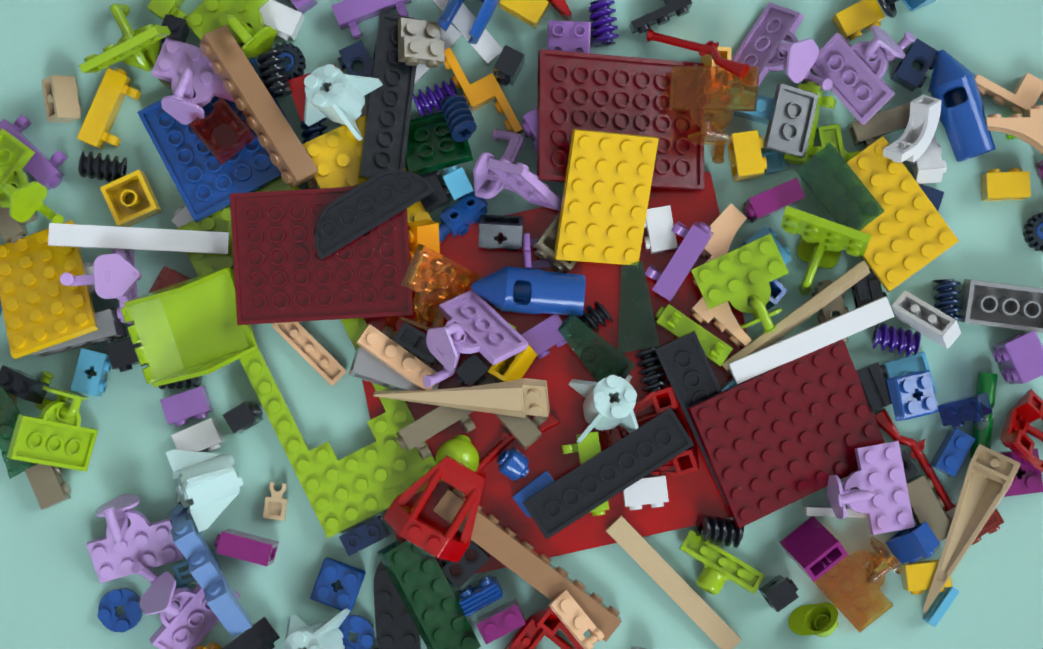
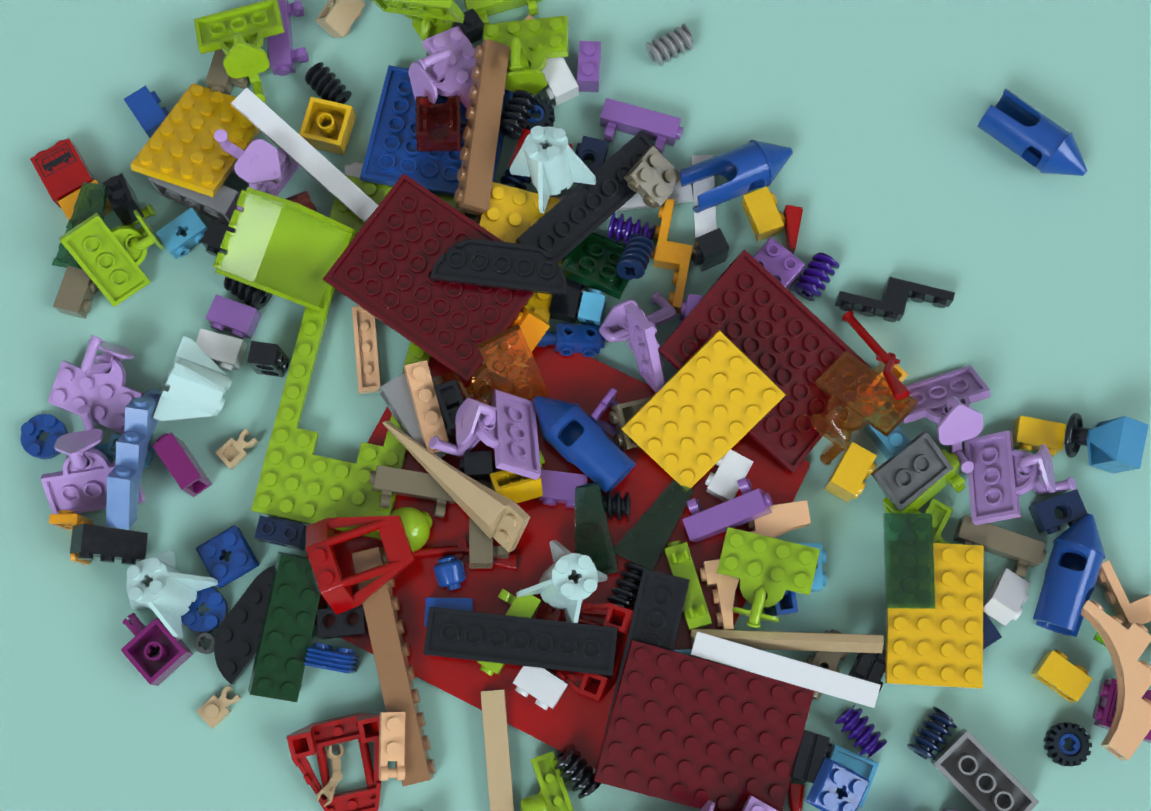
camera: 45 degrees right, 10 degrees down
(105, 108) = (367, 46): yellow brick -> none
(492, 225) = (587, 367): black brick -> none
(500, 621) = (330, 694): magenta brick -> none
(773, 200) = (845, 527): magenta brick -> none
(775, 162) = (871, 498): medium azure tile -> none
(821, 242) = (861, 594): lime plate -> none
(919, 130) = (1017, 567): white arch -> none
(926, 319) = (901, 733): white brick -> none

